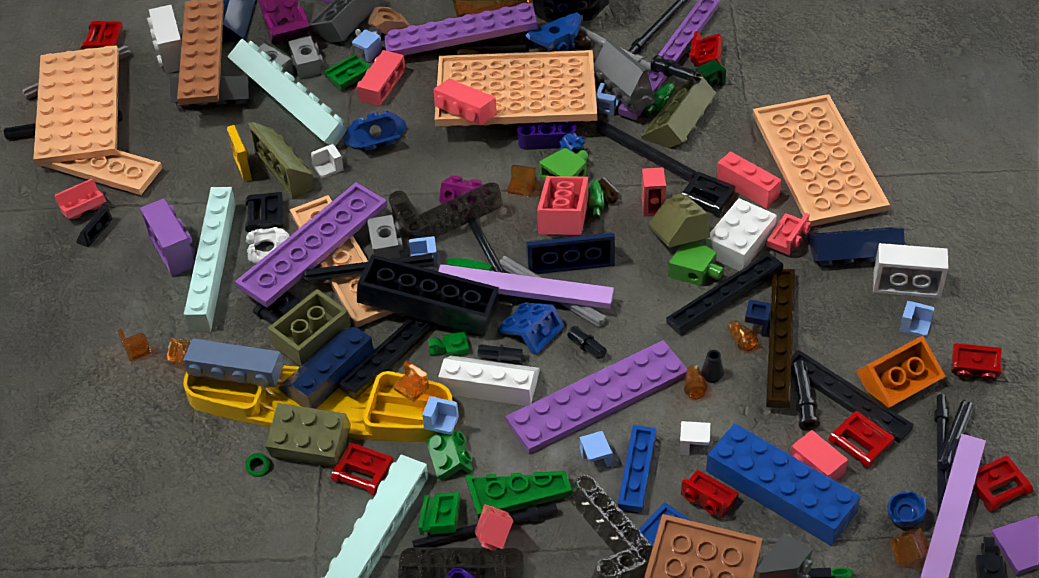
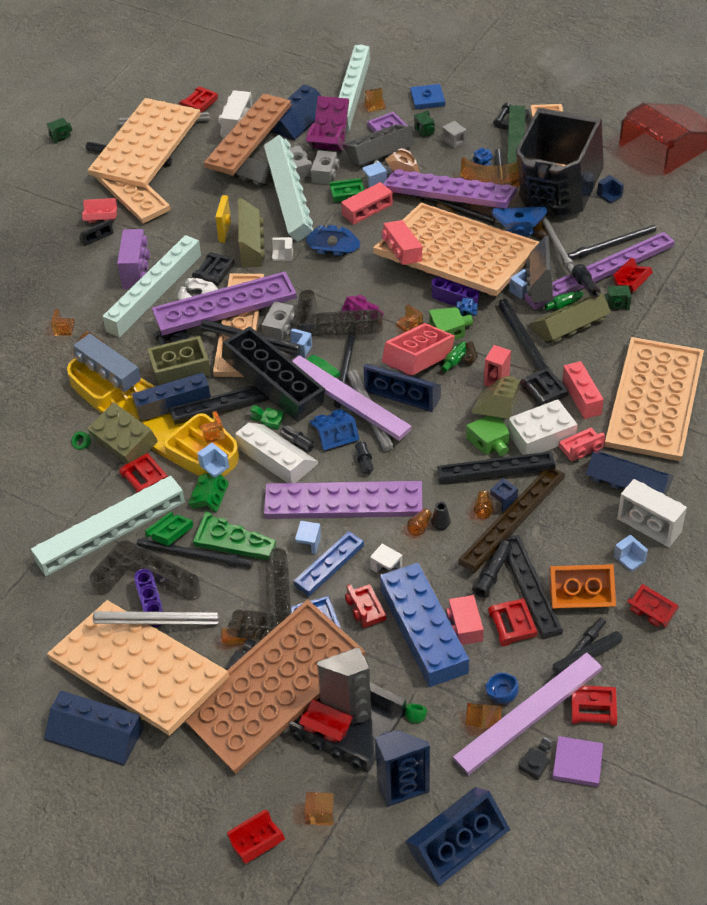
camera: 30 degrees right, 0 degrees up
(493, 527) = (190, 553): coral brick -> none

